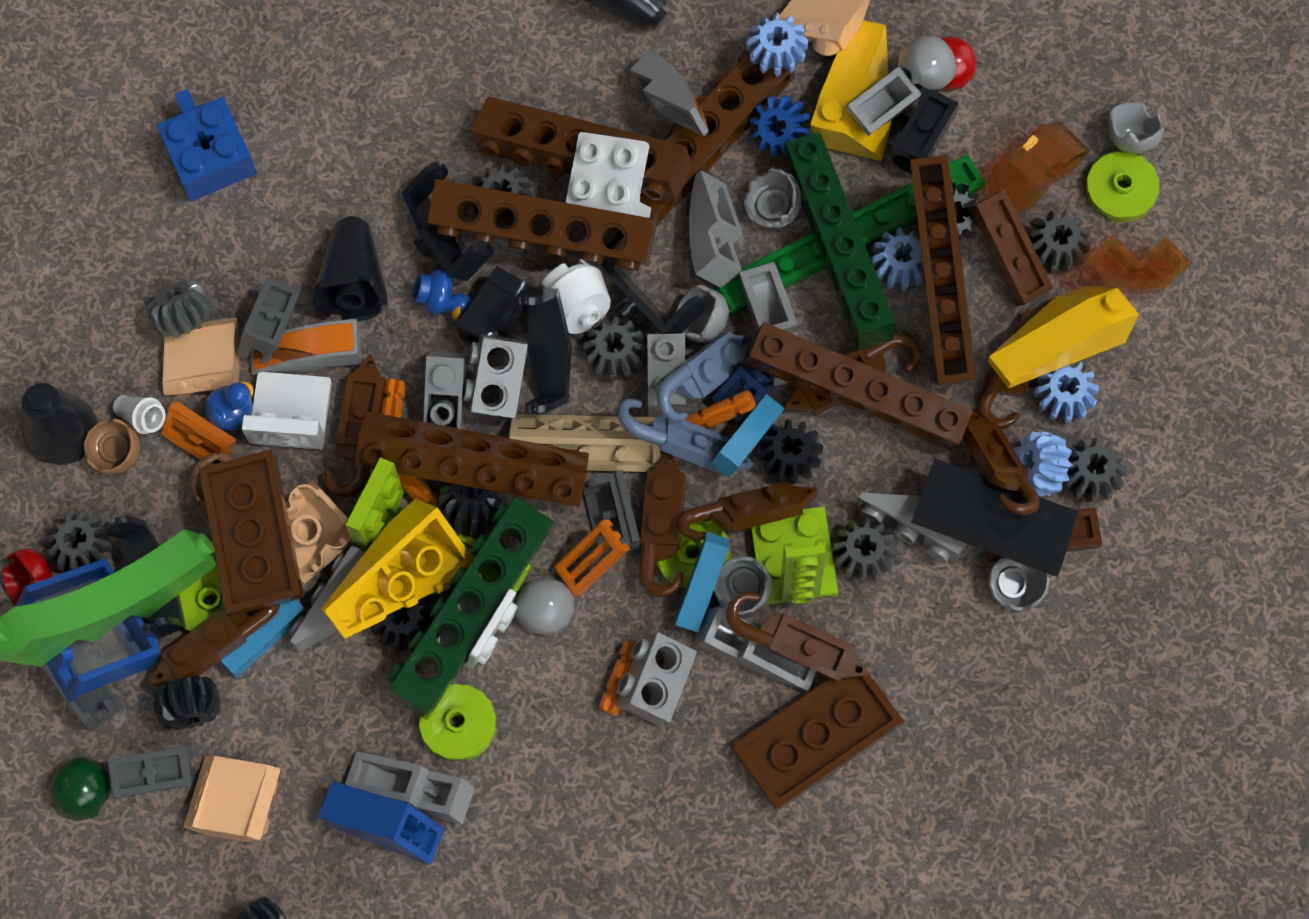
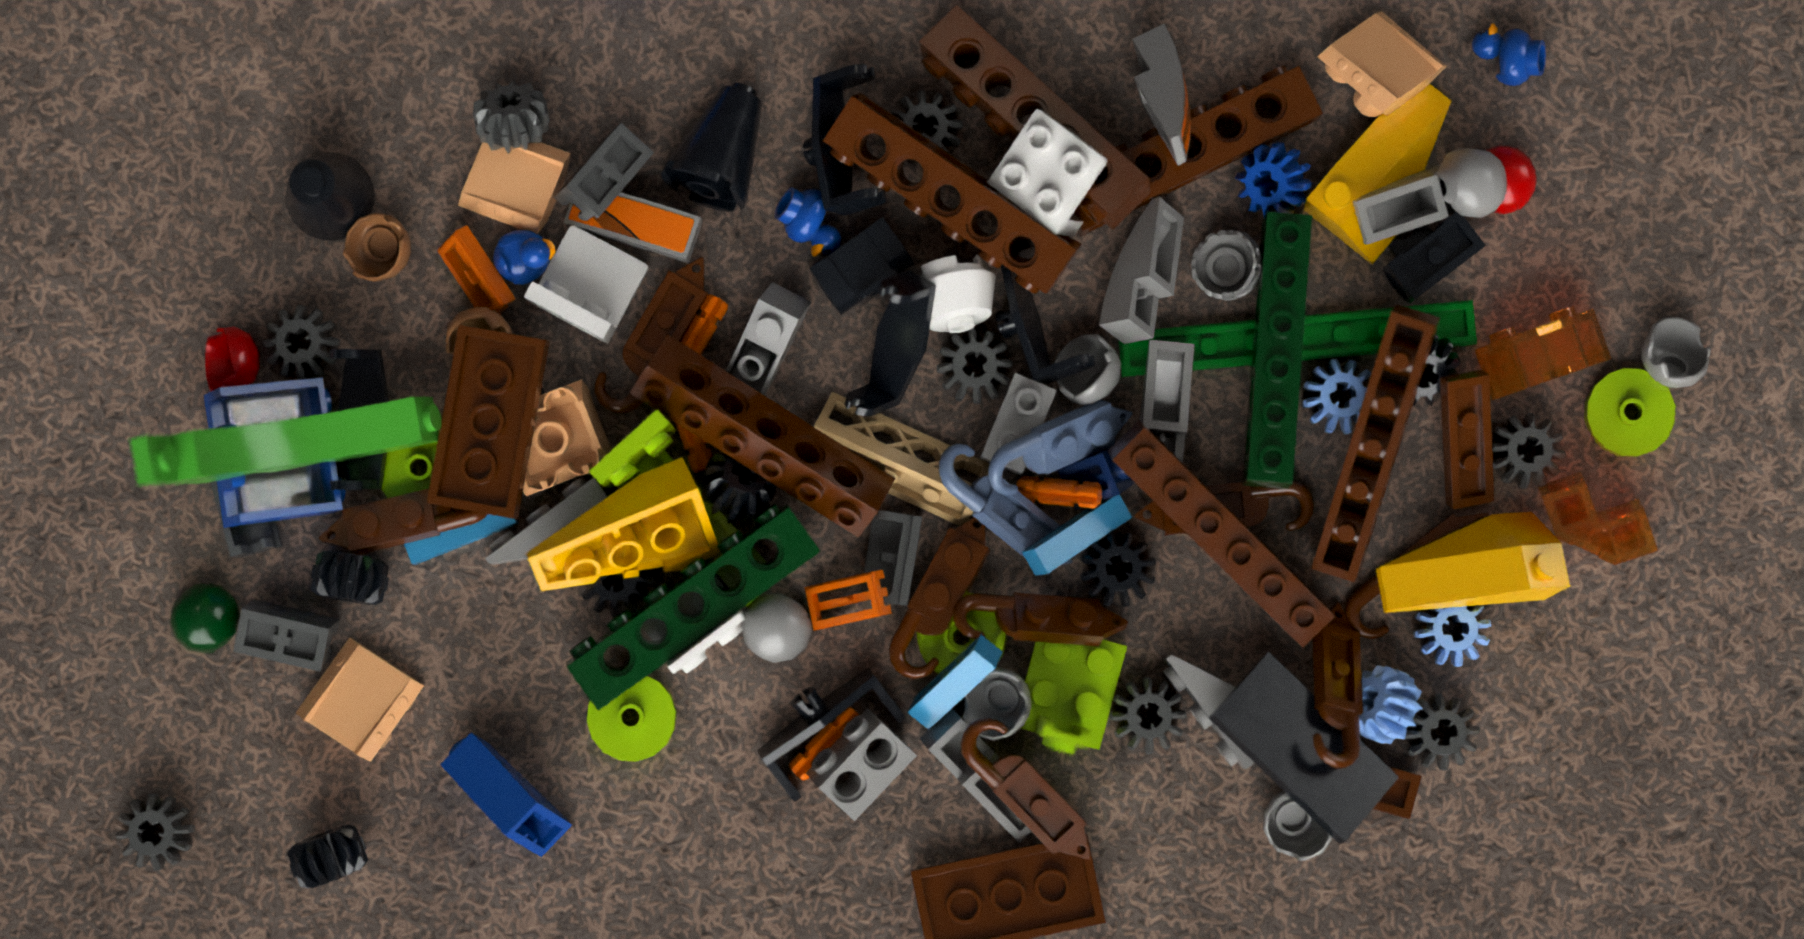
camera: 25 degrees right, 15 degrees up
(142, 413) = (423, 222): white cone -> none
(427, 791) = (551, 767): light grey slope -> none
(506, 376) = (837, 352): light grey brick -> none
(603, 654) = (817, 715): none -> black piece
(777, 31) = (1320, 101): light blue gear -> none

